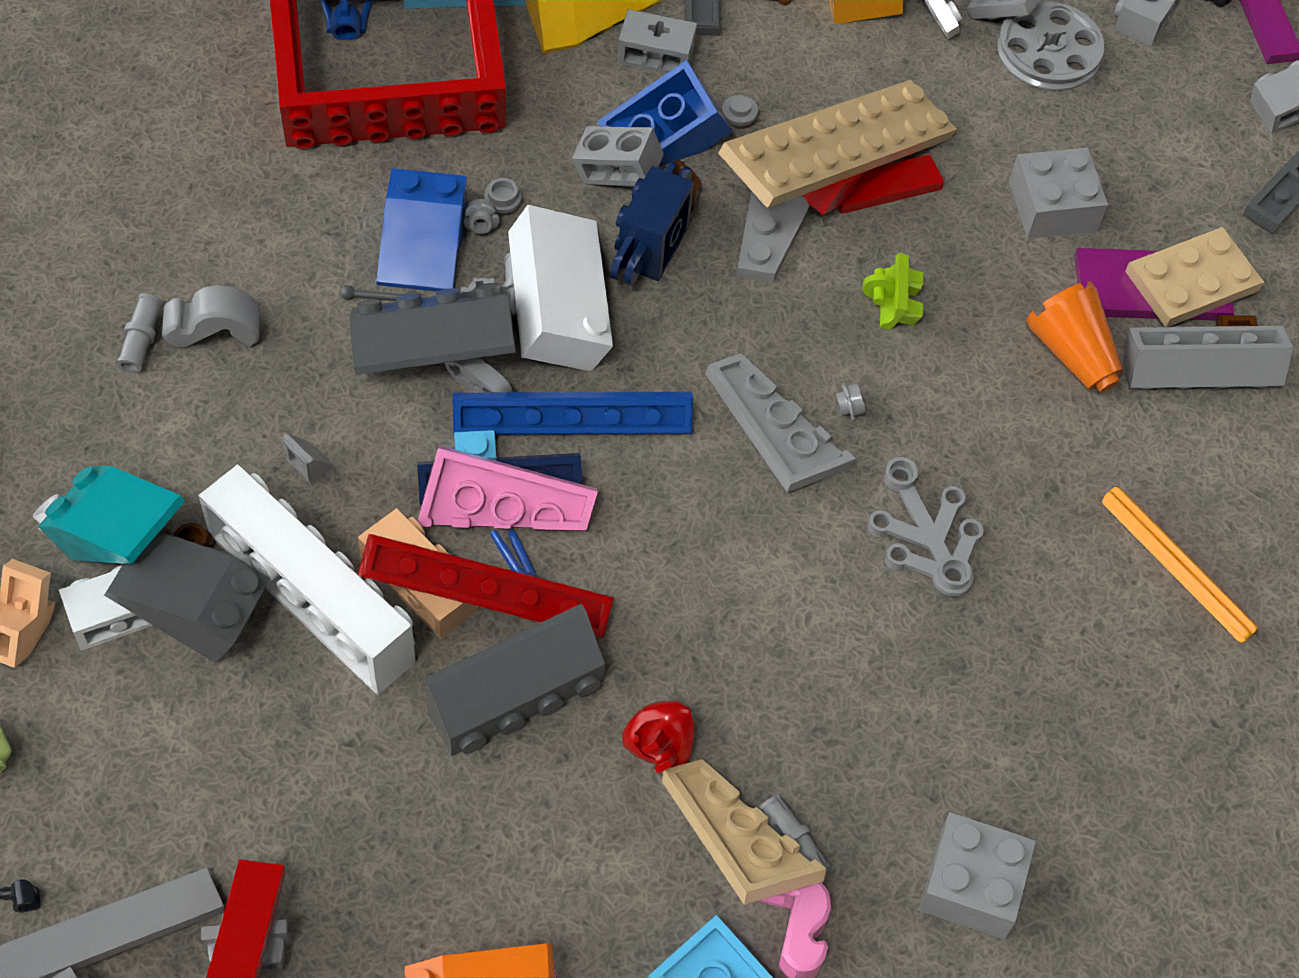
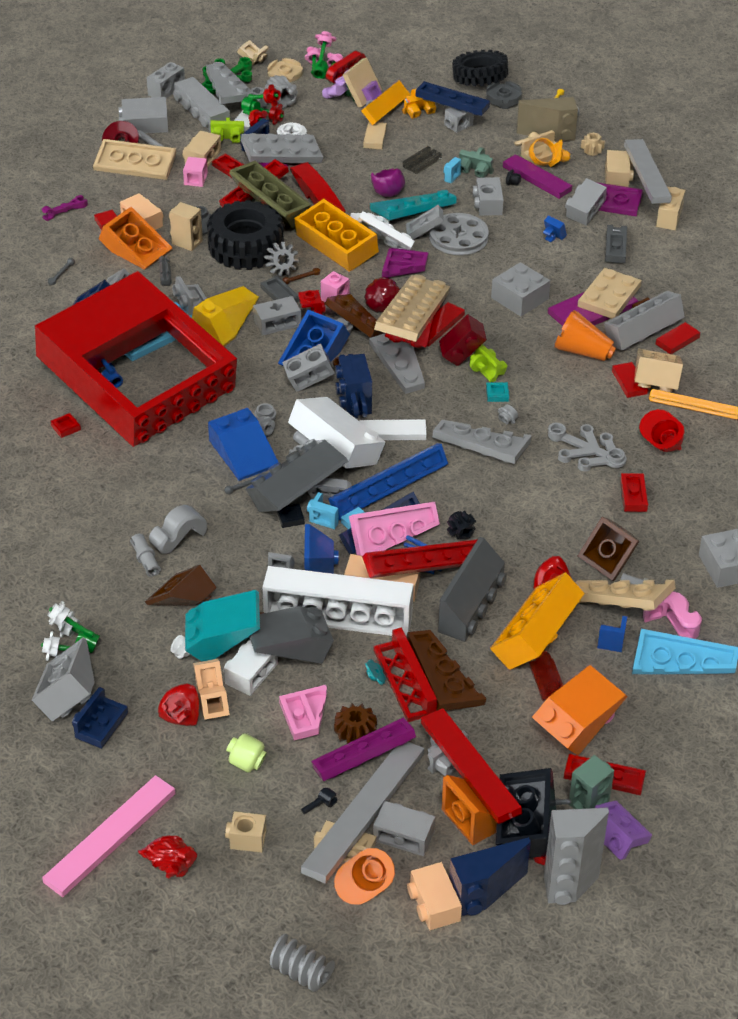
camera: 30 degrees left, 15 degrees down
(118, 729) = (304, 711): none -> bright pink wing
(131, 423) = (184, 589): none -> reddish brown slope
(132, 852) = (363, 749): none -> magenta plate
(177, 805) = (354, 722): none -> reddish brown gear
(225, 62) = (65, 425): none -> red tile
(273, 727) = (375, 672): none -> teal plant
(315, 768) = (414, 673): none -> red fence
(347, 483) = (319, 551): none -> blue slope
(358, 805) = (443, 674): none -> reddish brown wing
(392, 387) = (291, 516): none -> black tile
(431, 409) = (322, 513): none -> medium azure bracket
(509, 903) = (546, 675): none -> clear red hinge
(559, 802) = (537, 621): none -> light orange brick
(608, 554) = (461, 525): none -> black gear
(662, 327) = (398, 429): none -> white tile
(668, 895) = (612, 637): none -> blue panel
(723, 48) = (312, 299): none -> red bracket
(768, 89) = (353, 312): none -> reddish brown wing
(776, 44) = (334, 285): none -> bright pink brick
(798, 733) = (608, 548): none -> reddish brown slope
(836, 84) = (380, 293): none -> dark red hair
(873, 351) = (497, 392): none -> teal tile
(881, 235) = (462, 340): none -> dark red brick
(922, 51) = (404, 262): none -> magenta wing
(927, 656) = (634, 492): none -> red plate
(1061, 574) = (662, 430): none -> red piece
(1100, 447) = (625, 376): none -> red tile
(1154, 455) = (658, 370): none -> tan slope
(1202, 115) = (553, 229): none -> blue tile
(1244, 416) = (678, 338): none -> red tile

